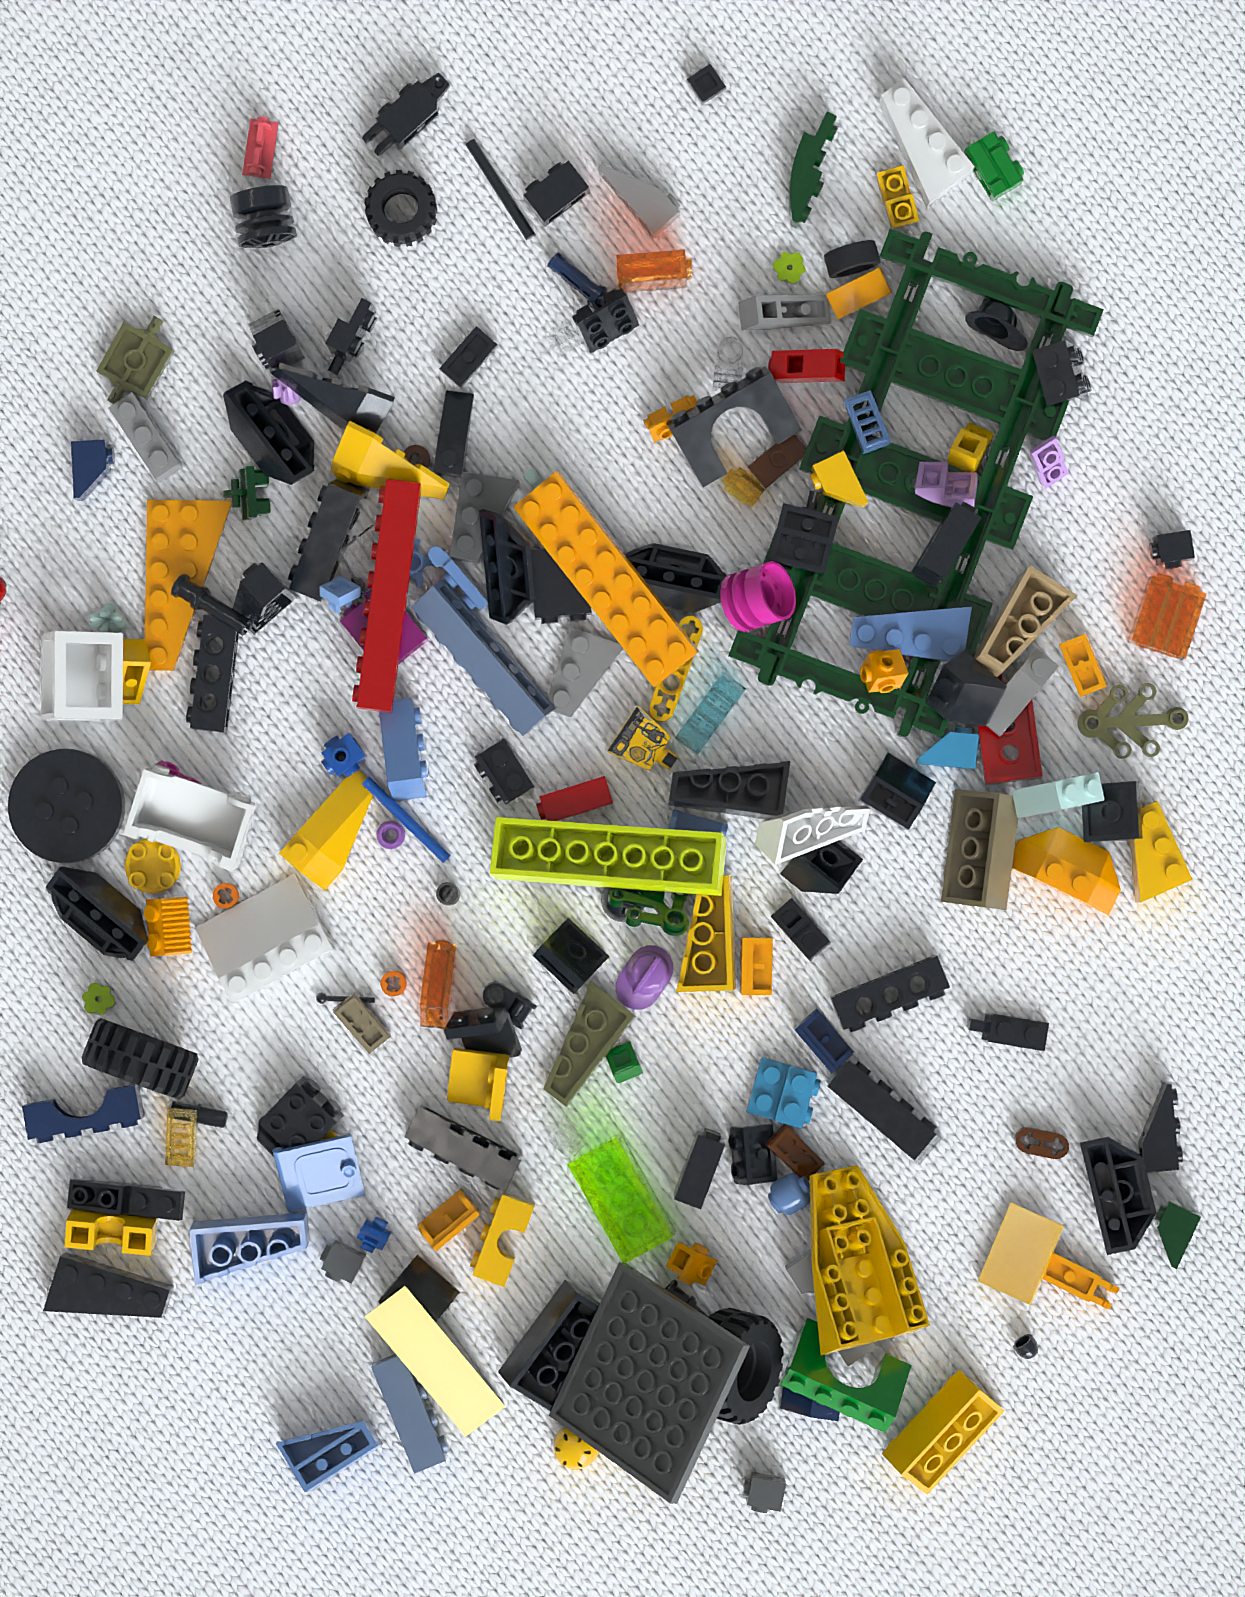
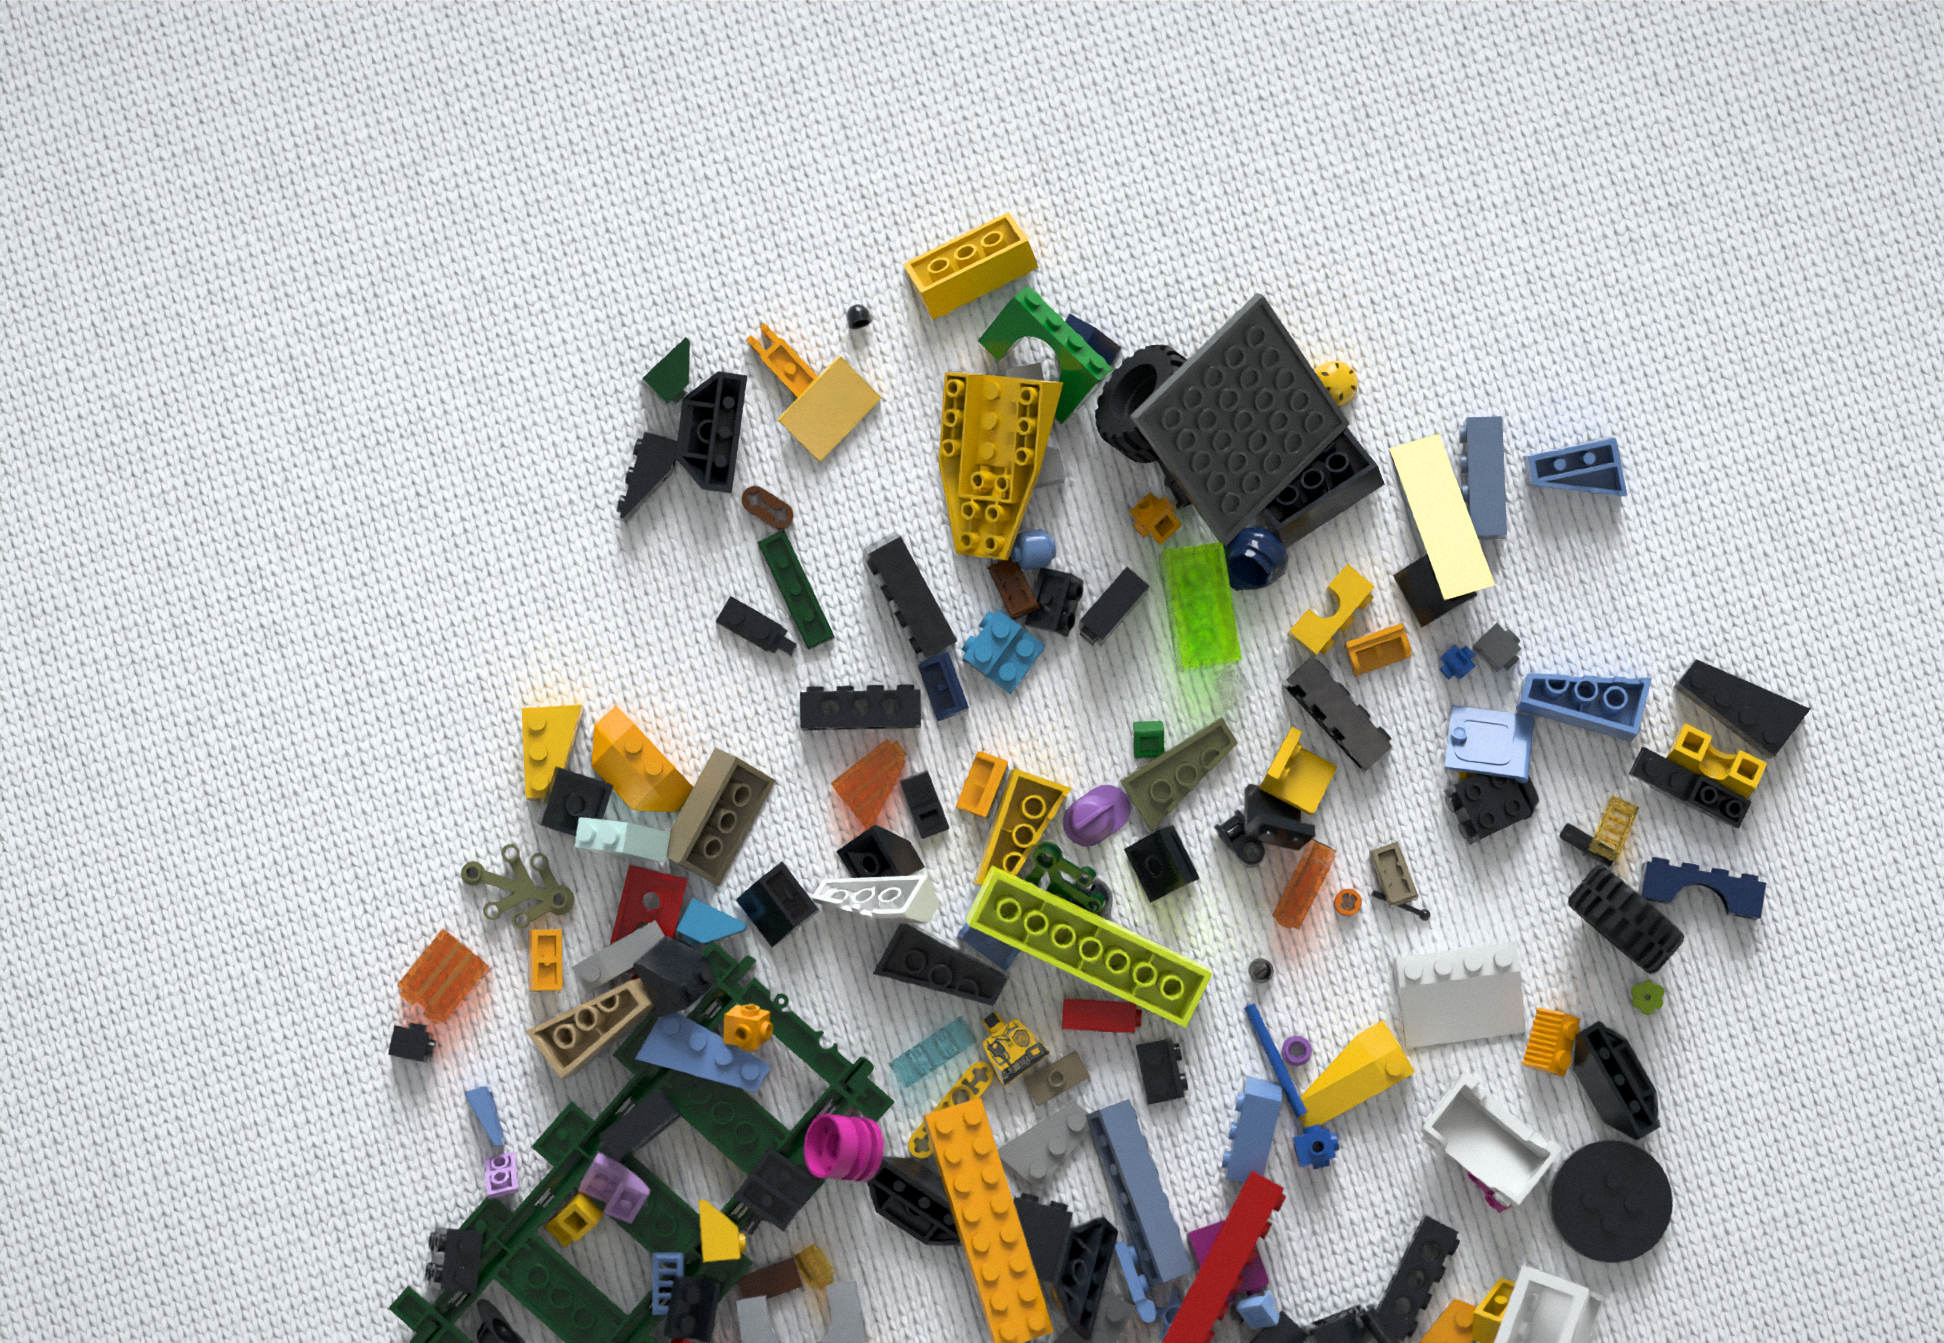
camera: 160 degrees left, 5 degrees down
(152, 866) = (1546, 1108): yellow dish -> none
(217, 897) = (1492, 1053): orange bush -> none
(588, 1260) = (1255, 559): none -> dark blue helmet
(593, 731) = (1056, 1078): none -> dark tan plate
(764, 1492) = (1166, 272): dark grey brick -> none
(837, 407) = (692, 1308): none -> black bracket
(855, 931) = (871, 781): none -> clear orange slope
(987, 1078) = (796, 590): none -> dark green tile
(1084, 514) = (485, 1109): none -> medium blue slope

